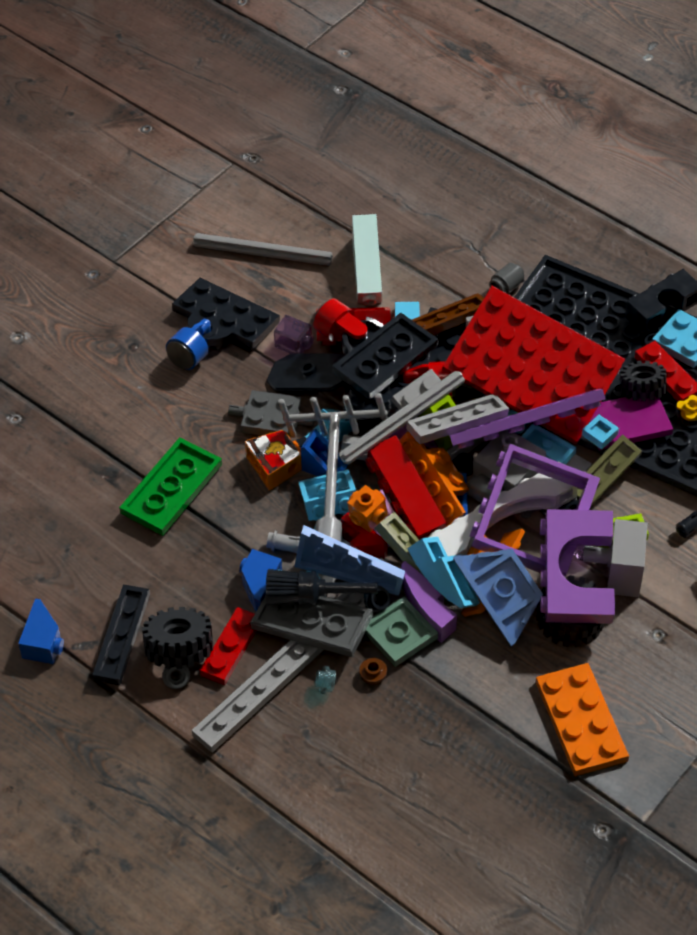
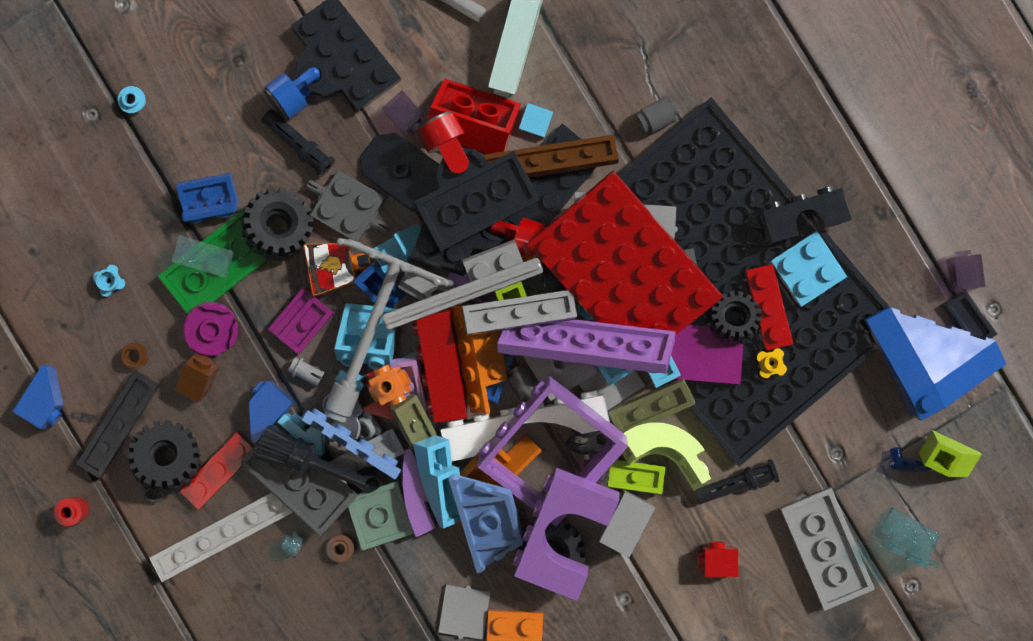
camera: 15 degrees right, 35 degrees up
(49, 395) = (138, 104): none -> medium azure plate
(70, 523) = (101, 280): none -> medium azure plate
(101, 712) = (78, 507): none -> red brick
(117, 572) = (126, 353): none -> reddish brown plate
(143, 439) = (207, 197): none -> blue bracket
(157, 475) = (202, 256): none -> clear light blue plate
(182, 533) = (210, 328): none -> magenta tile
(184, 569) = (197, 377): none -> reddish brown brick
(214, 435) = (280, 205): none -> black tyre
(219, 384) = (307, 150): none -> black pin
(263, 505) = (301, 321): none -> magenta plate
(513, 690) = (464, 611): none -> light grey piece
(638, 493) = (669, 442): none -> yellowish green arch

